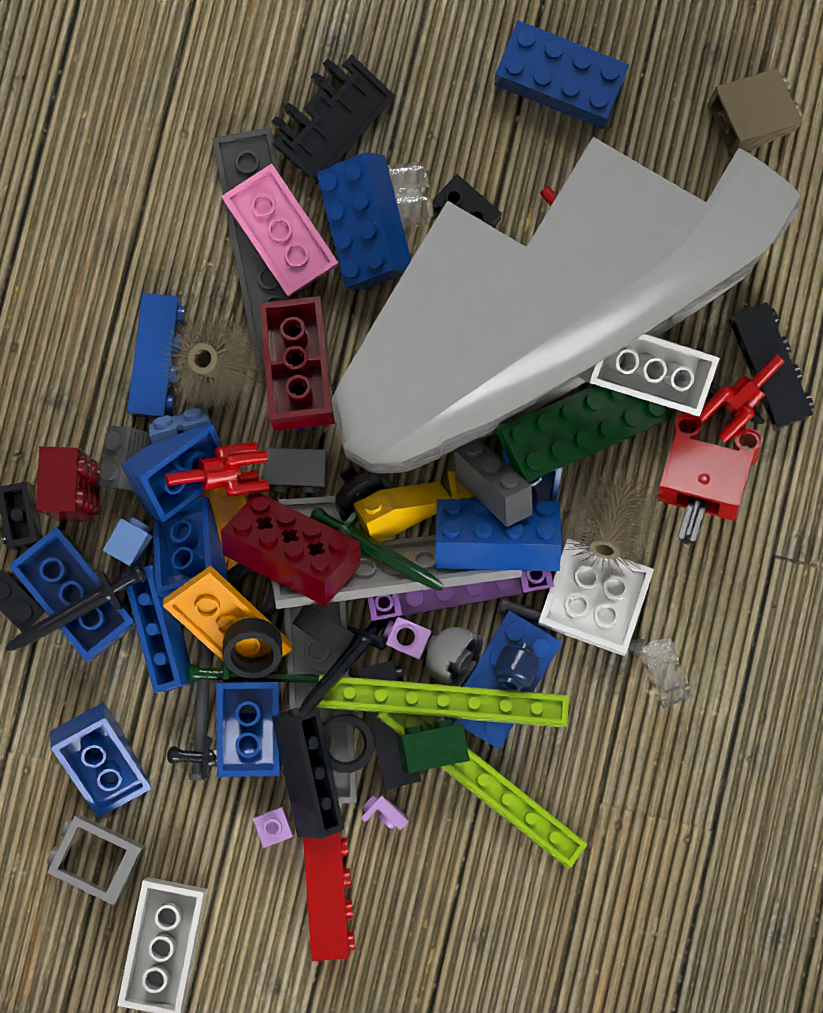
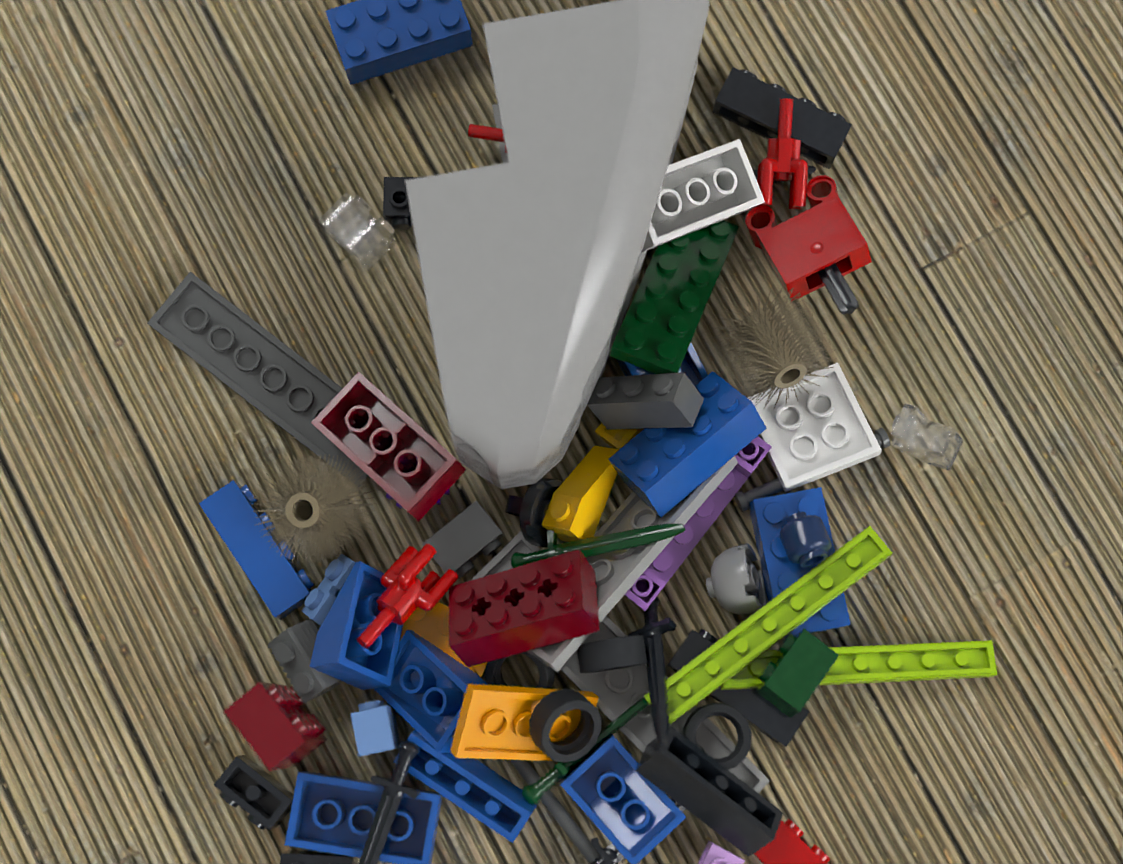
camera: 45 degrees left, 5 degrees down
(280, 230) = (274, 349): bright pink plate -> none
(336, 117) = (240, 217): black hinge -> none
(364, 221) = (340, 280): blue brick -> none
(389, 812) = (807, 764): lavender bracket -> none
(420, 641) = (696, 588): lavender brick -> none

